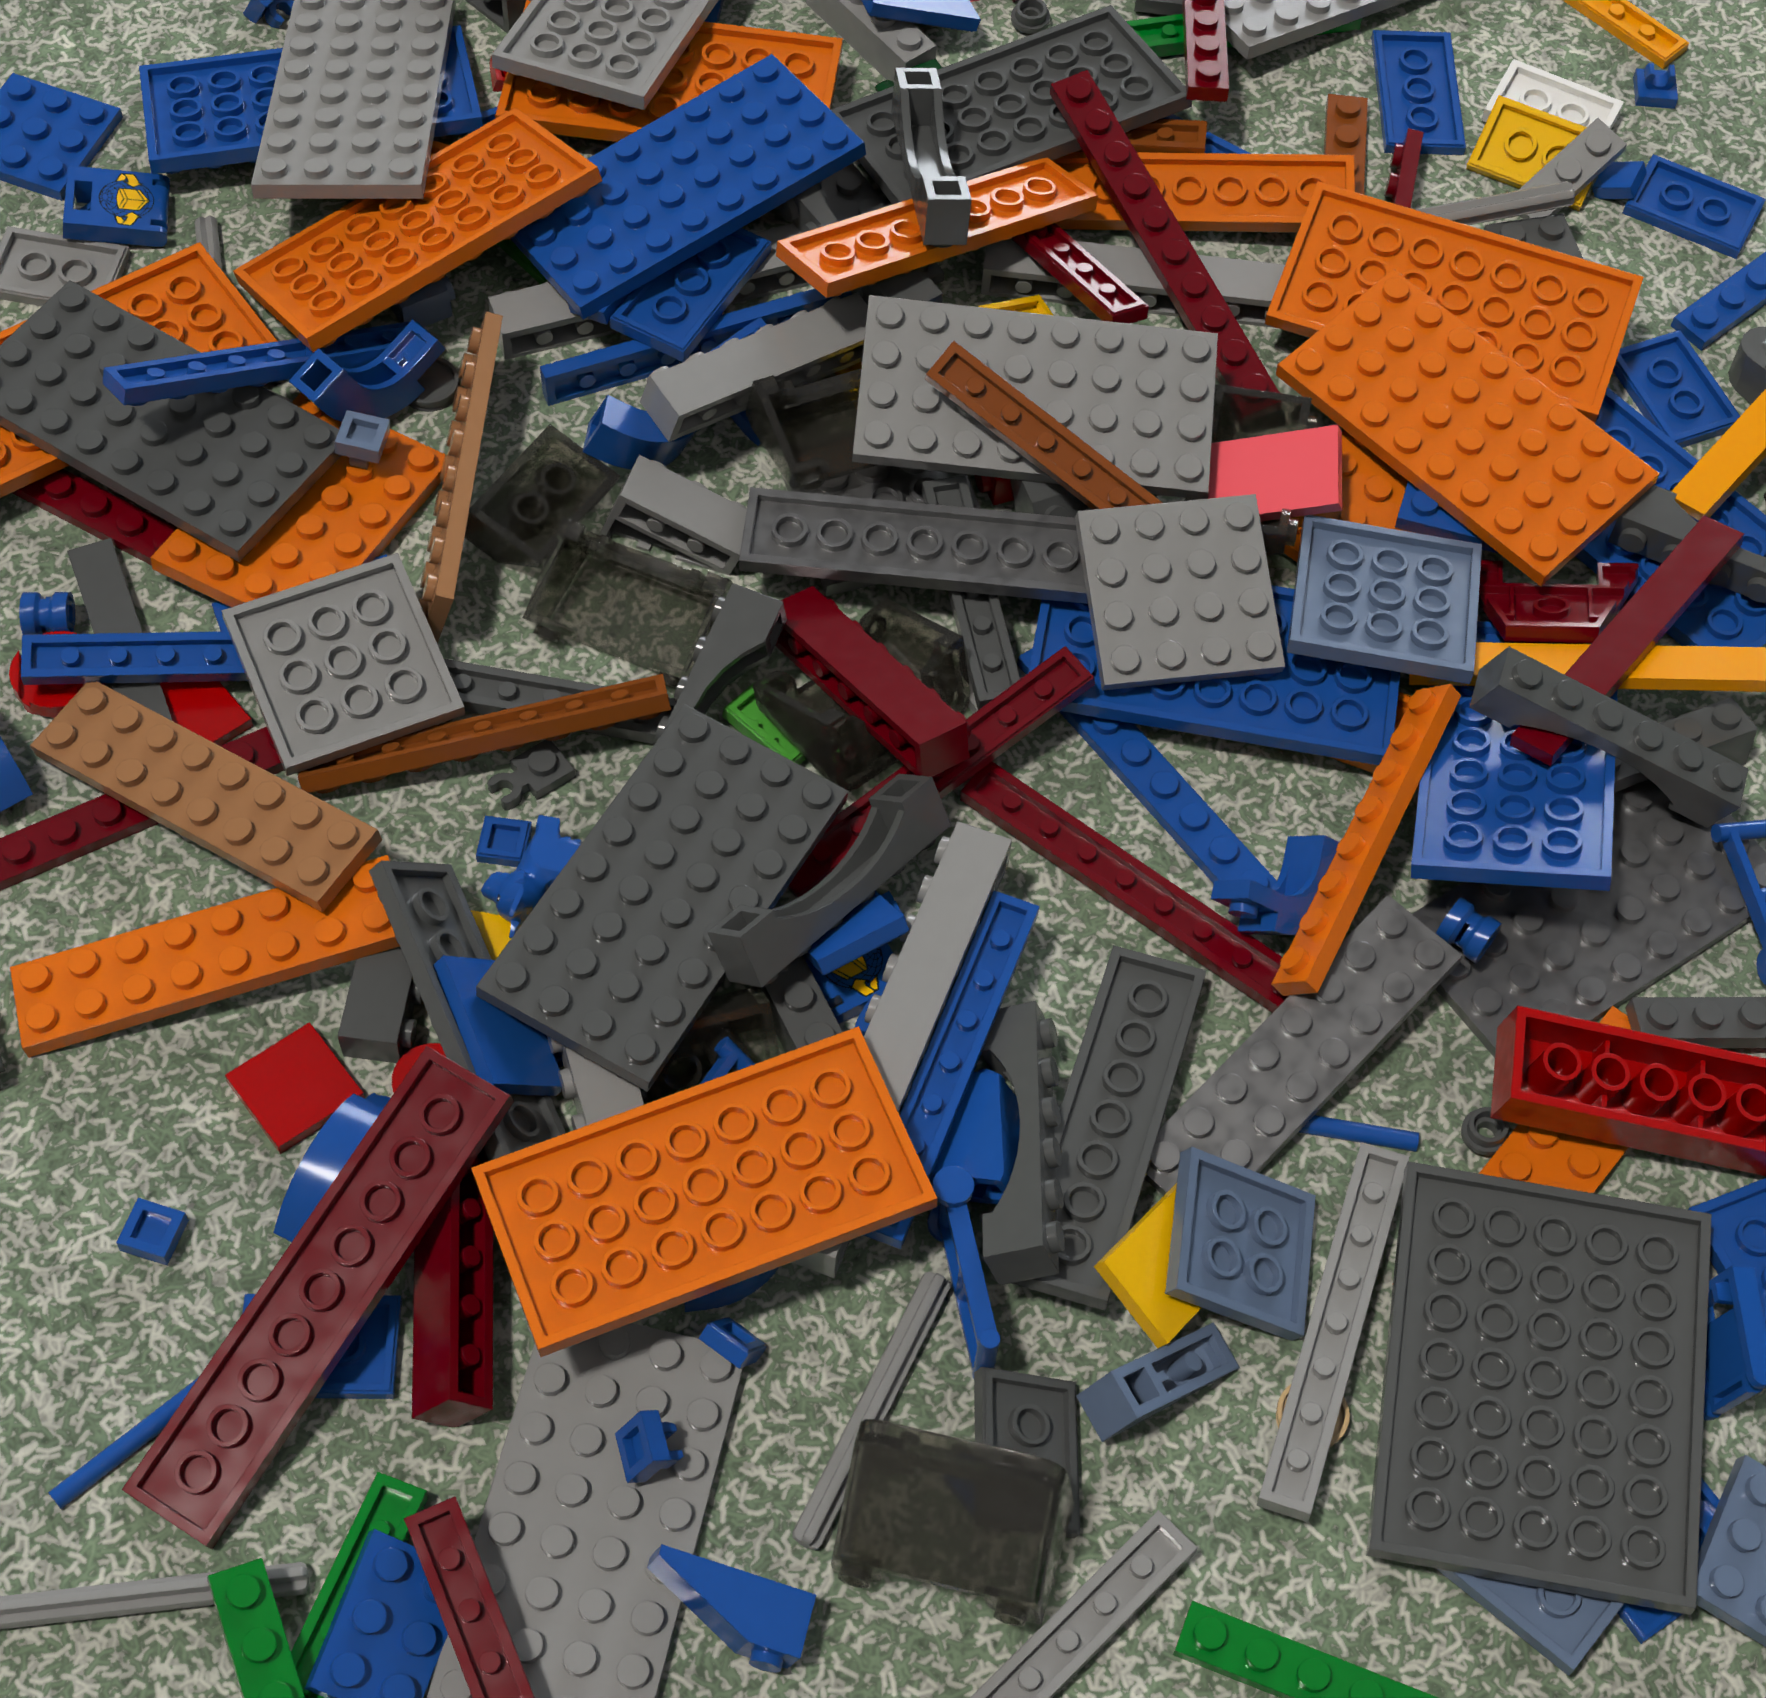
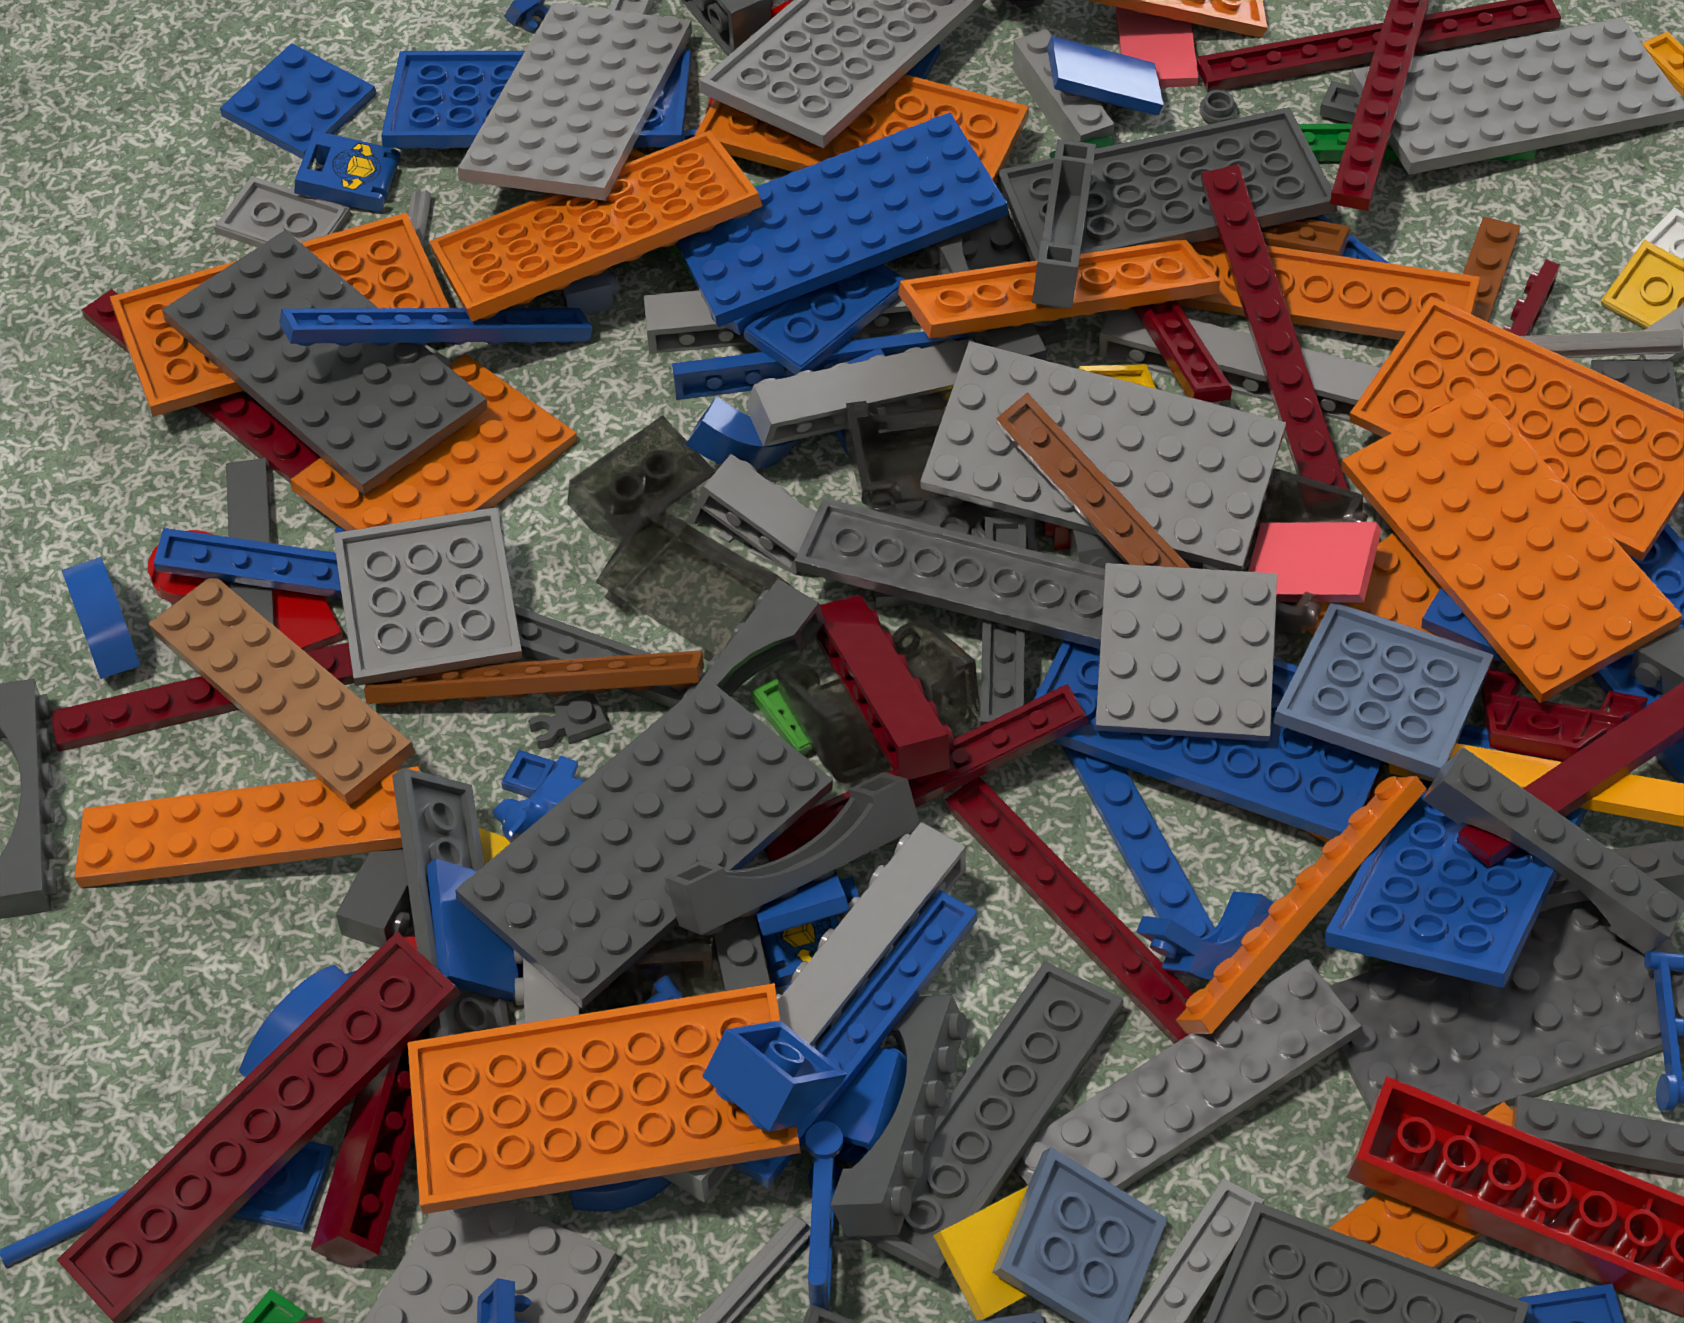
camera: 20 degrees right, 5 degrees down
(46, 614) = (194, 514): blue wheel -> none
(152, 1231) = (140, 1051): blue plate -> none
(293, 1087) = (289, 950): red tile -> none
(362, 438) = (496, 403): sand blue tile -> none
(374, 388) = (522, 362): blue arch -> none
(440, 387) = (575, 365): dark grey piece -> none
(459, 473) = (572, 450): medium nougat plate -> none
(733, 1342) = (604, 1241): blue tile -> none
(891, 1129) = (771, 1074): none -> blue slope
(1362, 1133) = (1229, 1171): blue bar -> none
(1418, 90) = (1575, 224): blue tile -> none
(1478, 935) = (1377, 1005): blue wheel -> none
(1481, 1119) = (1341, 1204): dark grey plate -> none

